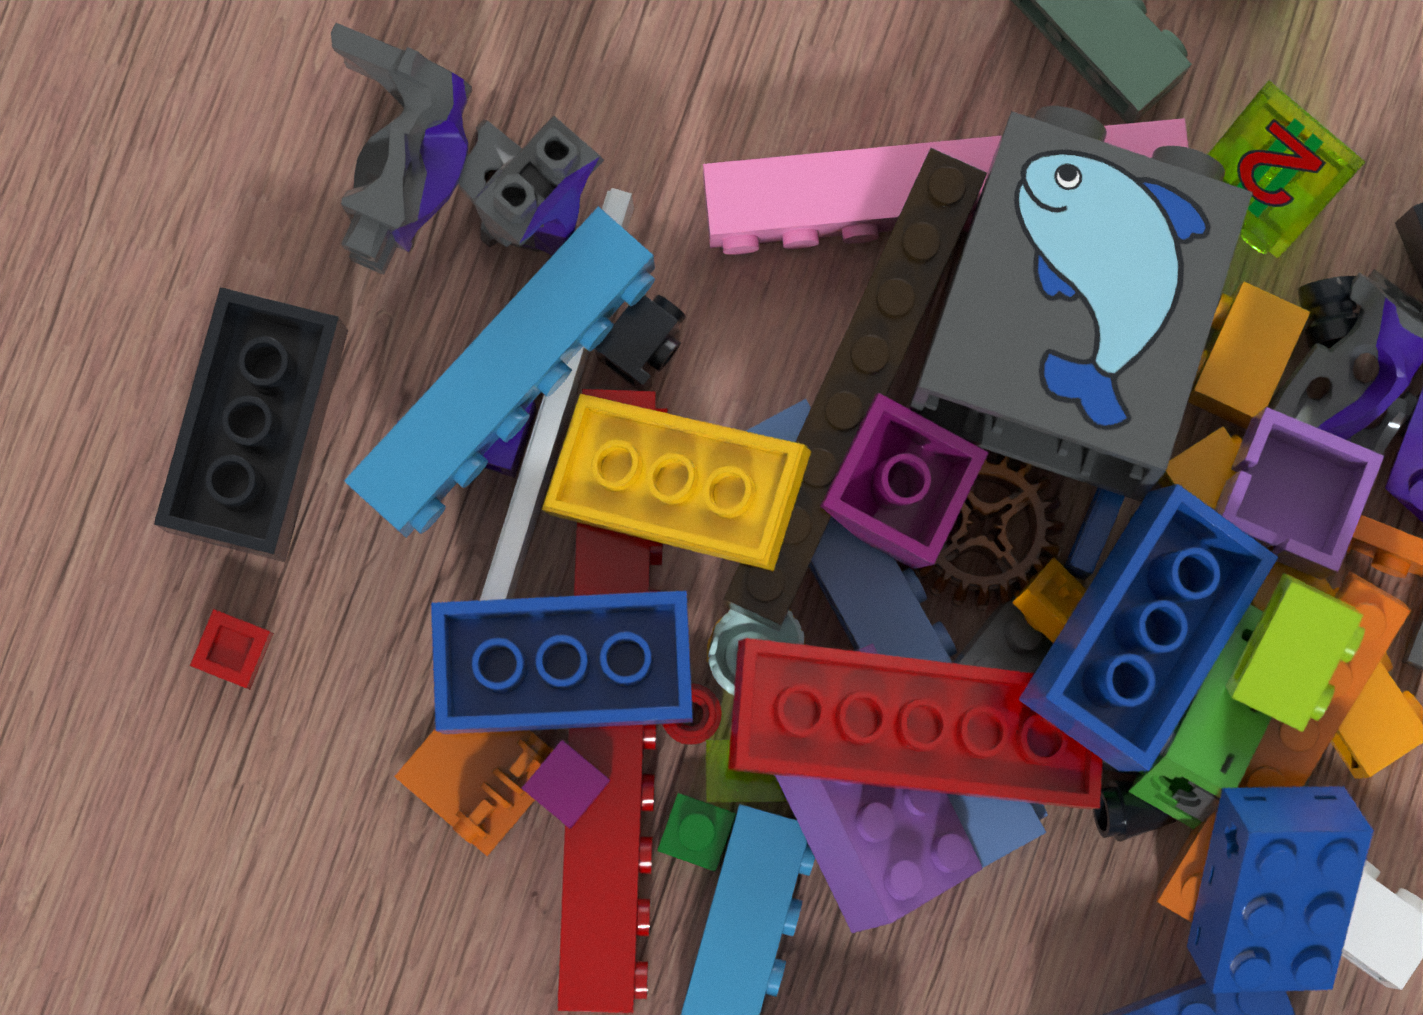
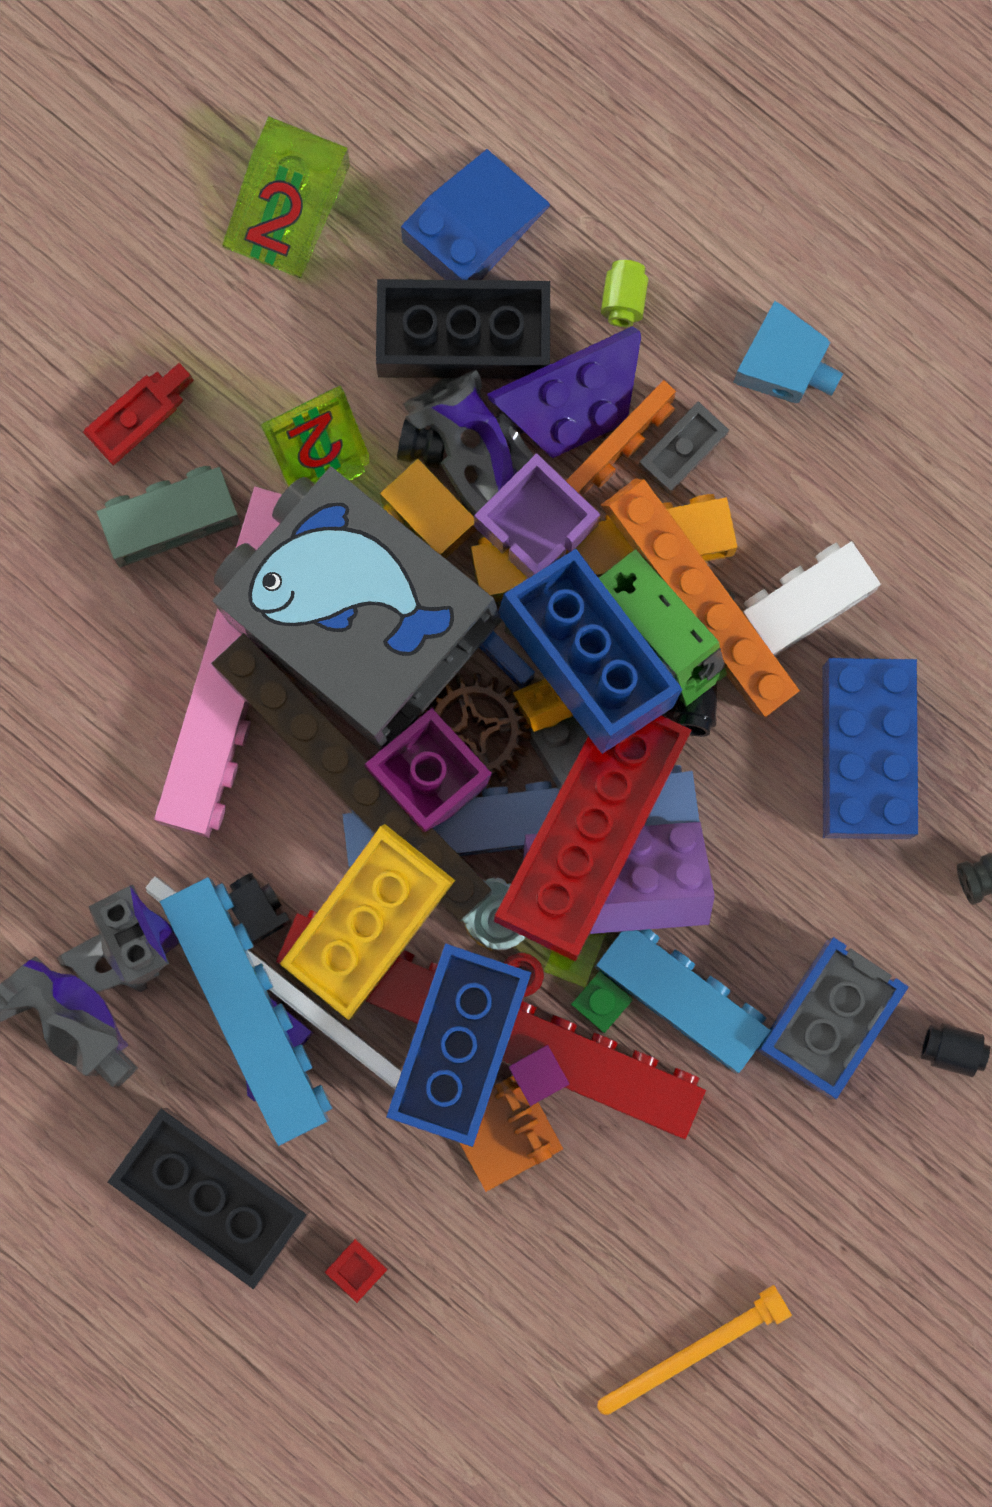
camera: 70 degrees left, 0 degrees up
(1278, 888) = (788, 636): blue piece -> none
(1296, 653) = (643, 563): lime brick -> none

